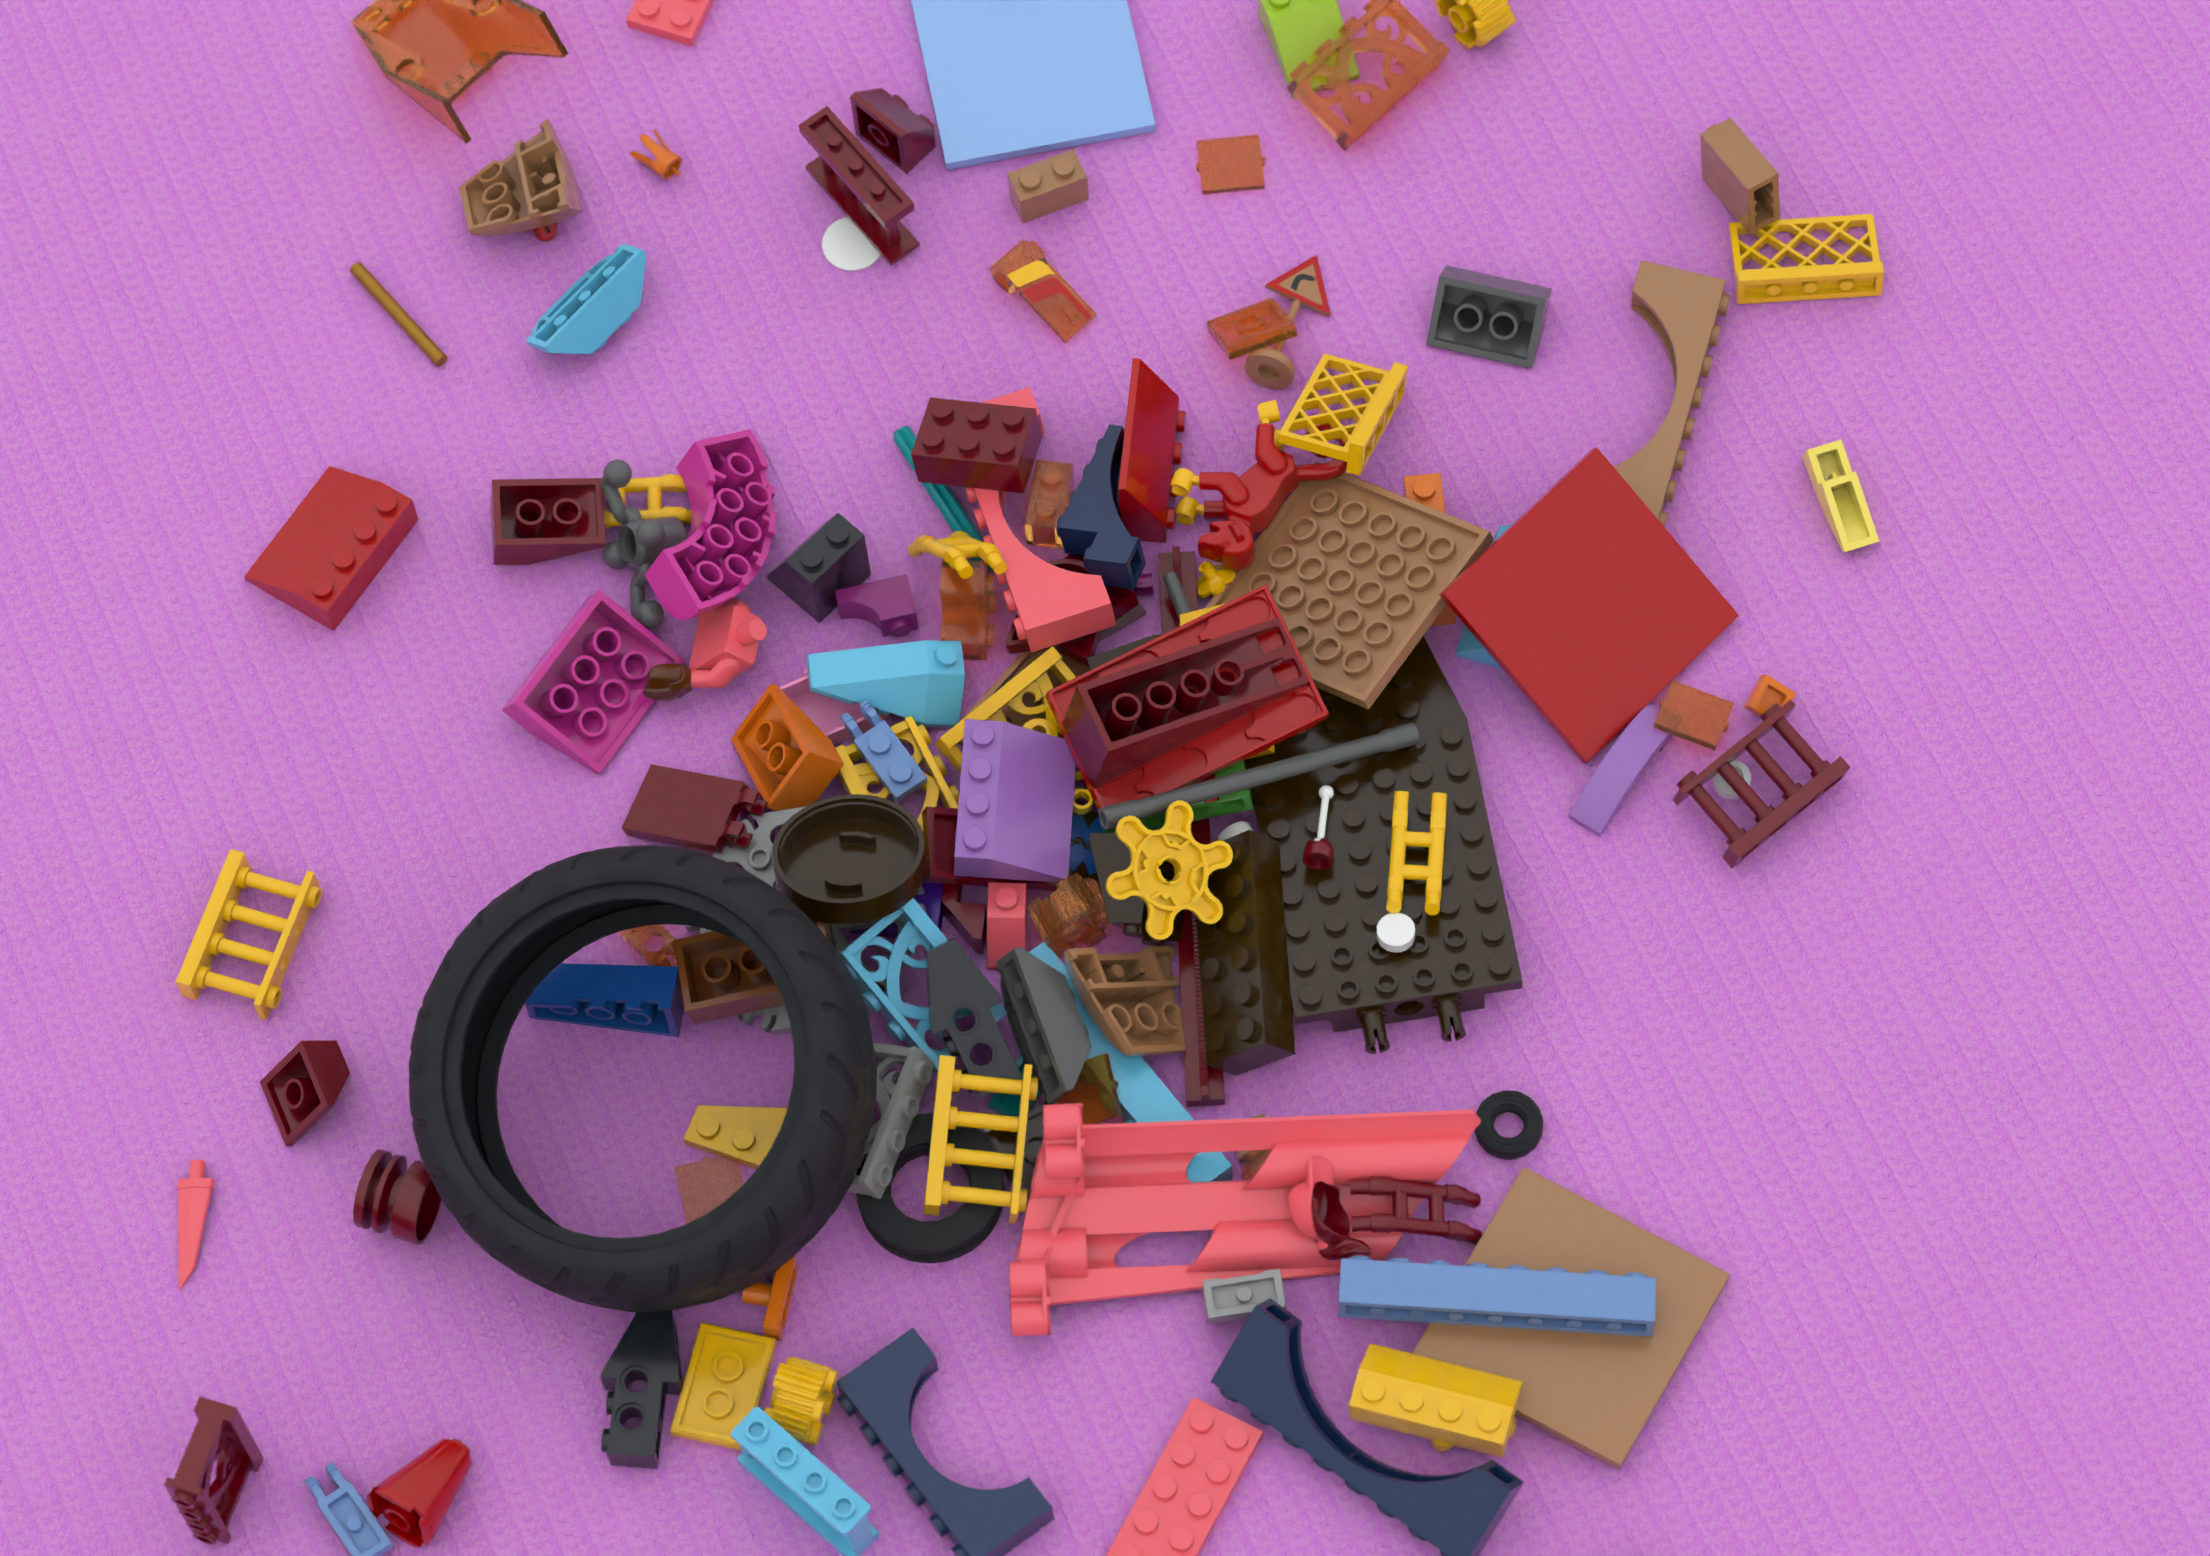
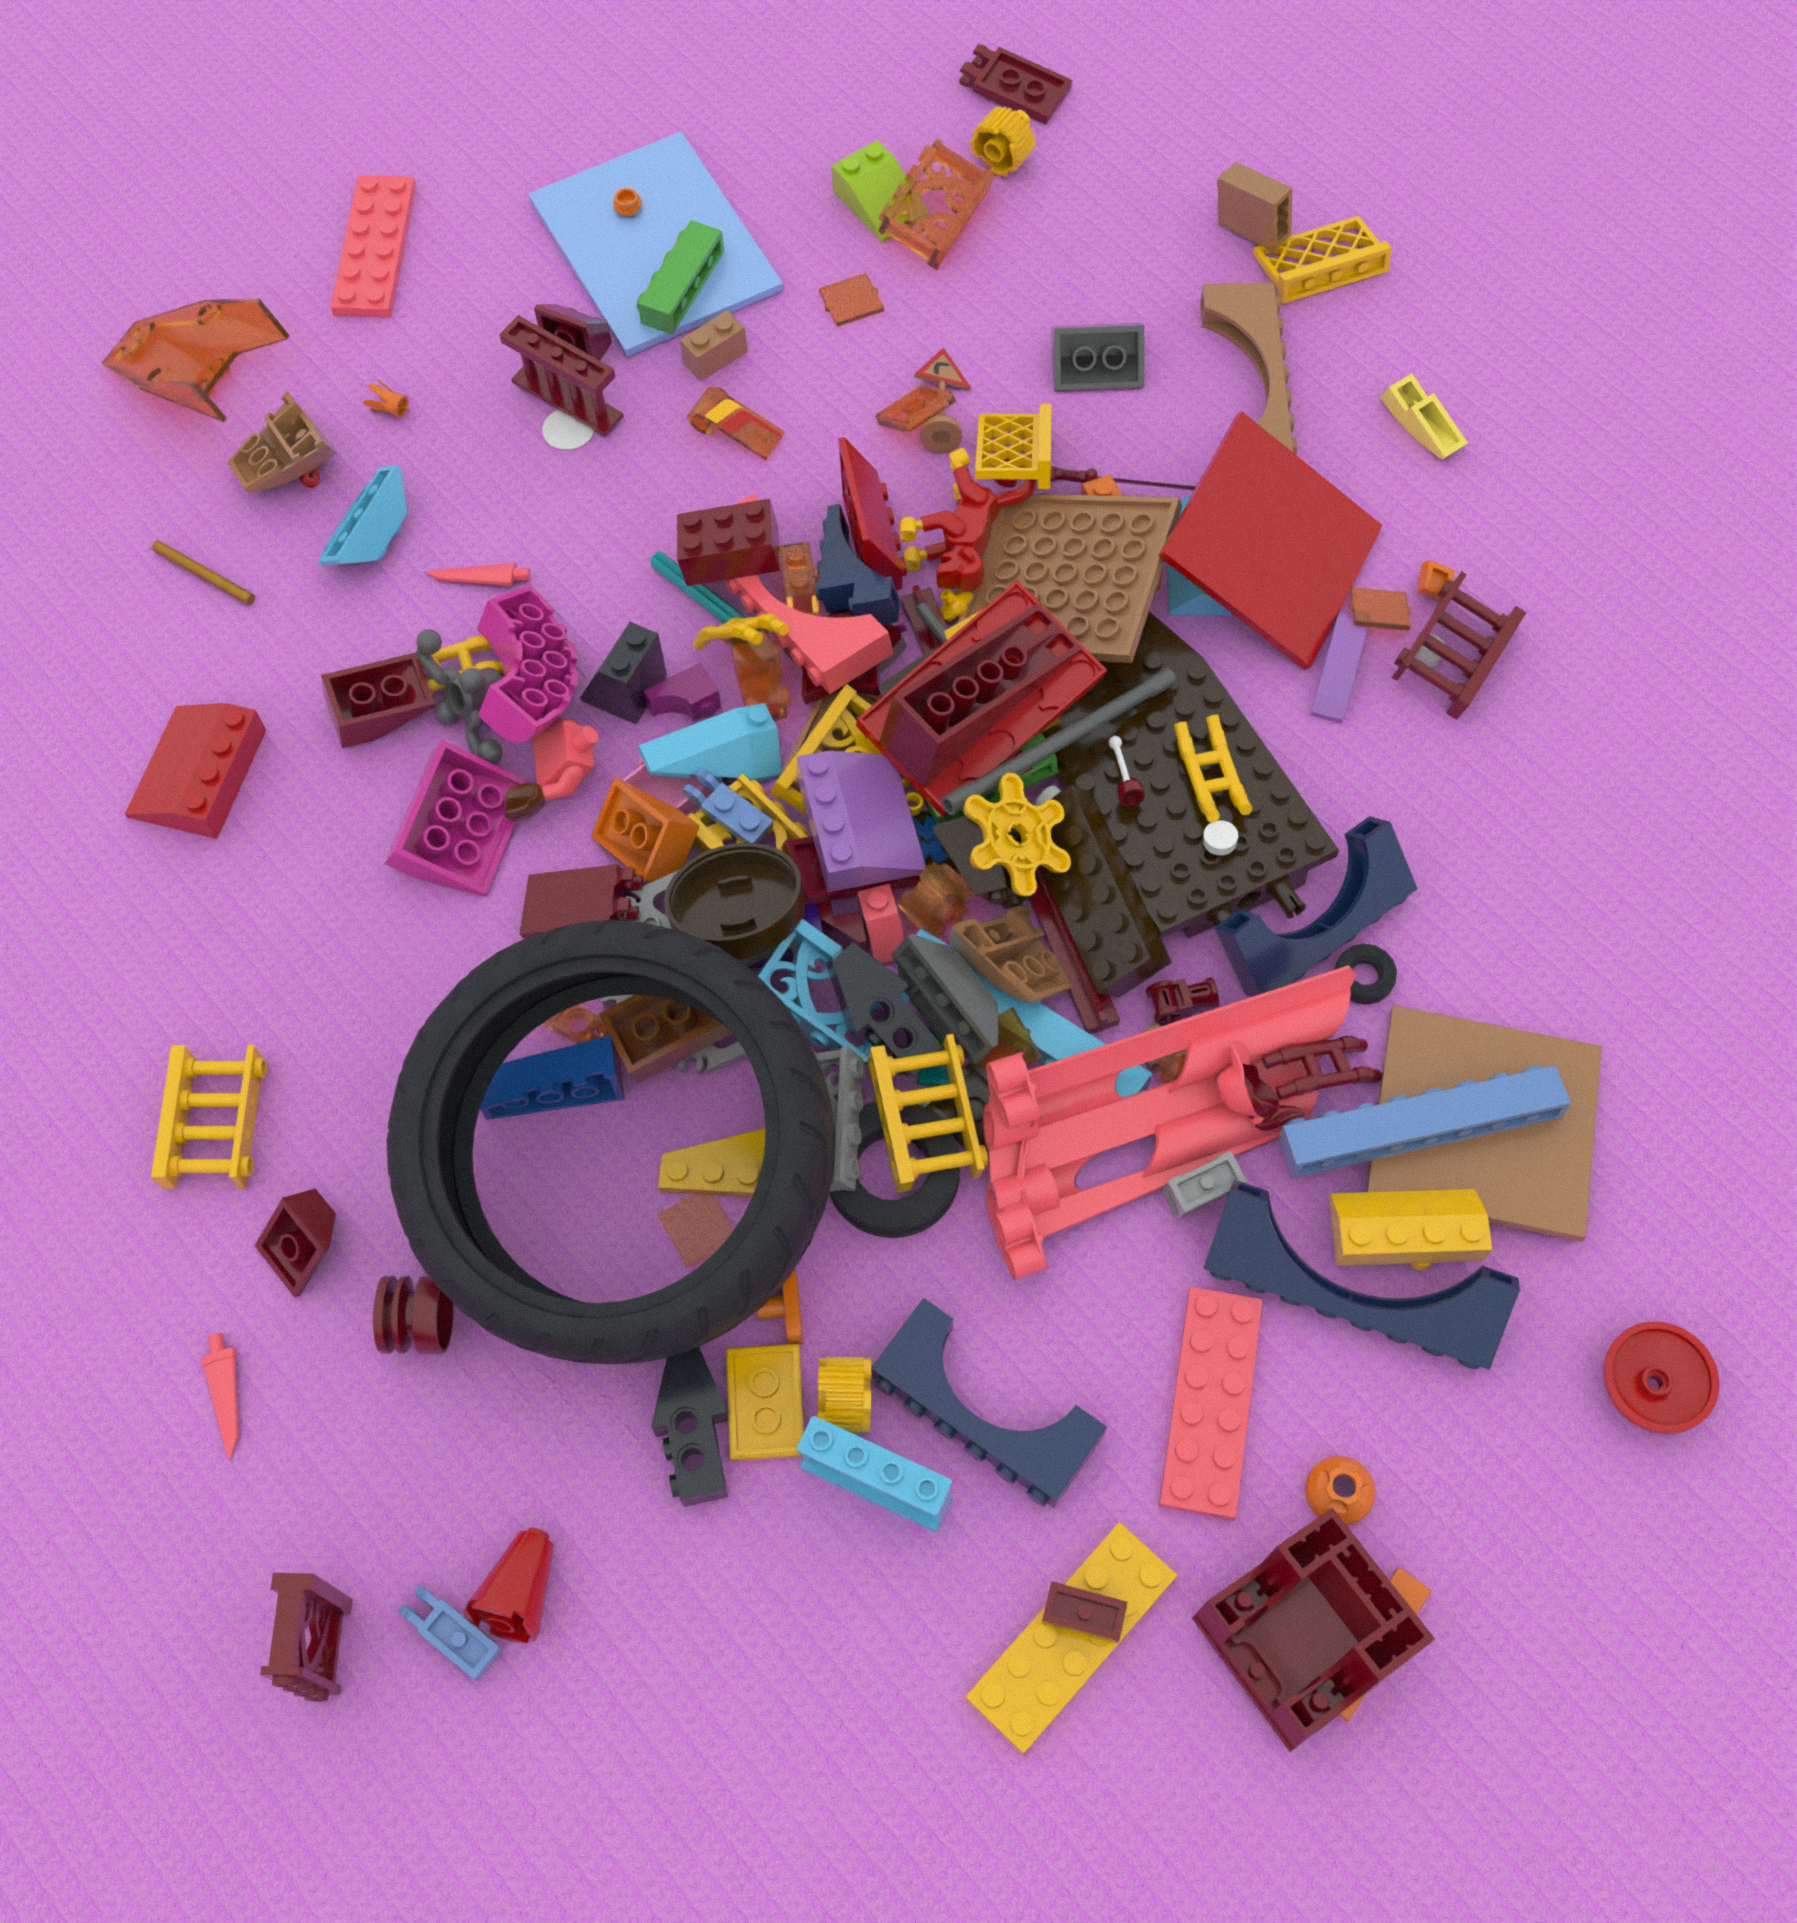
camera: 20 degrees left, 0 degrees up
(713, 402) = (489, 574): none -> coral bar
(1036, 89) = (680, 277): none -> bright green brick
(1296, 1095) = (1177, 999): none -> dark red connector
(1420, 467) = (1080, 476): none -> dark red sword
(1549, 1031) = (1373, 885): none -> dark blue arch

